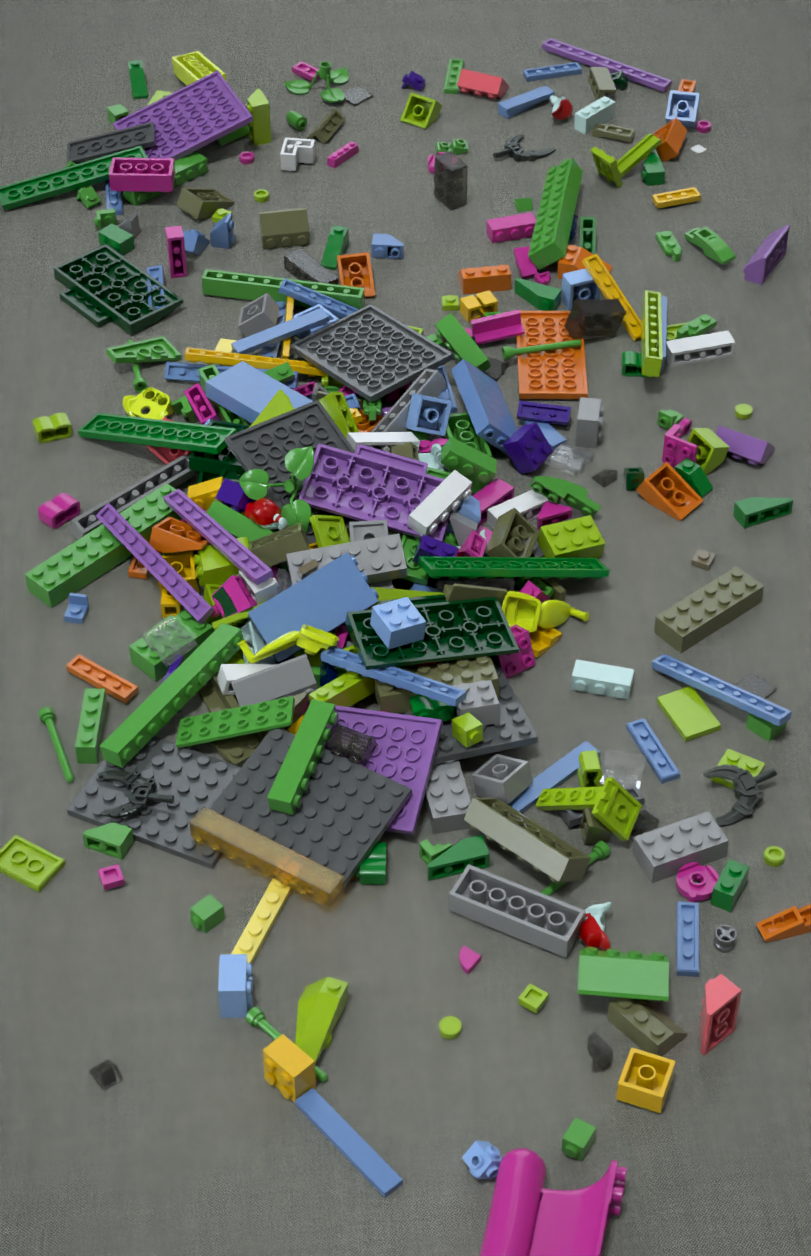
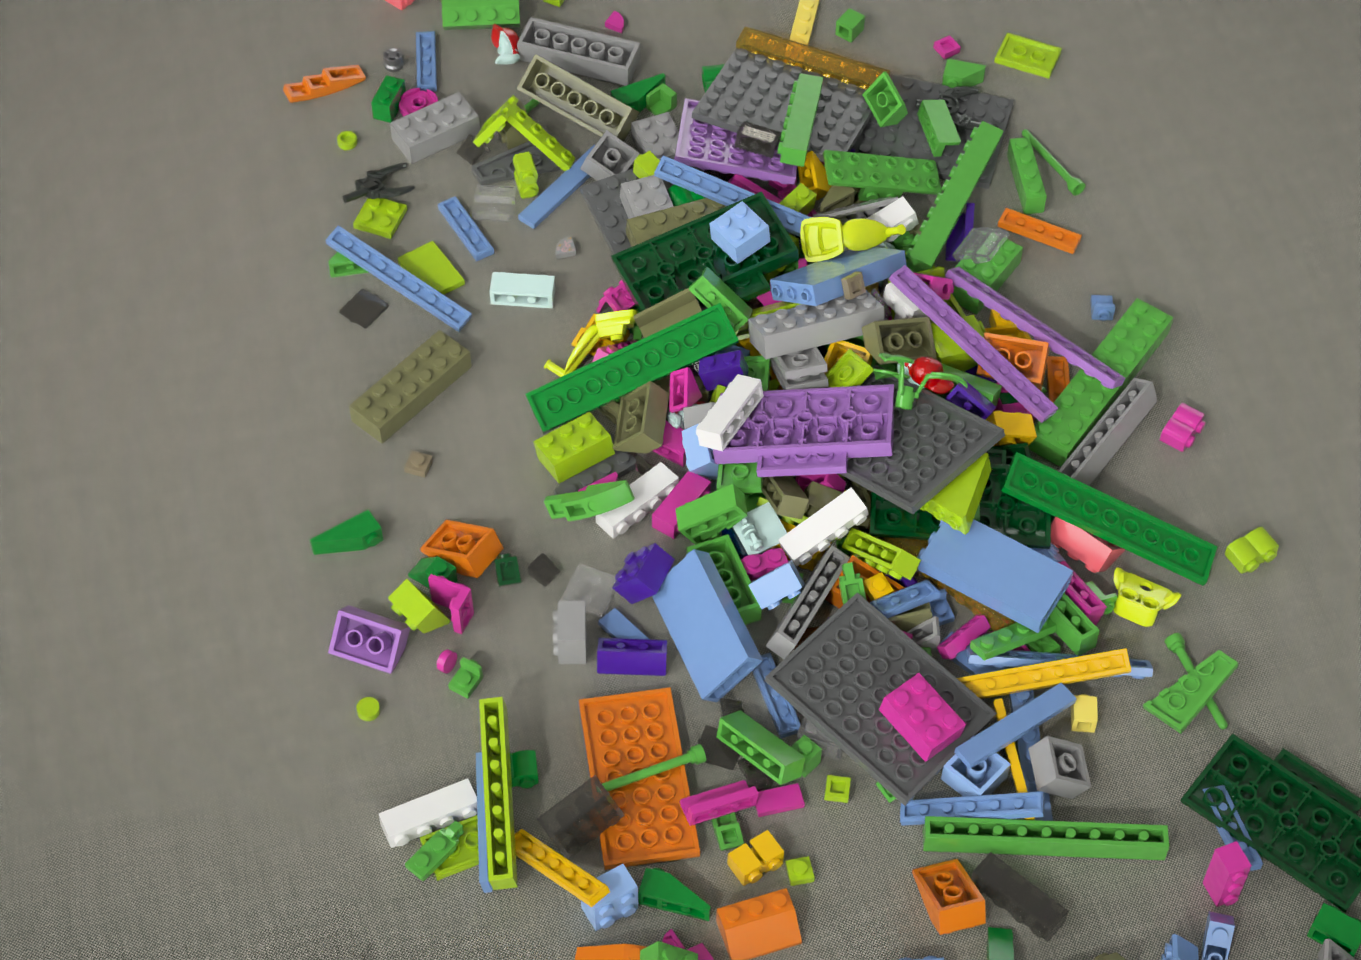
camera: 170 degrees right, 10 degrees up
(160, 767) = (937, 125): none -> bright green panel
(205, 783) = (885, 101): none -> bright green slope
(347, 328) = (922, 717): none -> dark pink brick
(425, 585) = (713, 290): none -> bright green panel
(556, 719) = (565, 248): none -> light grey tile

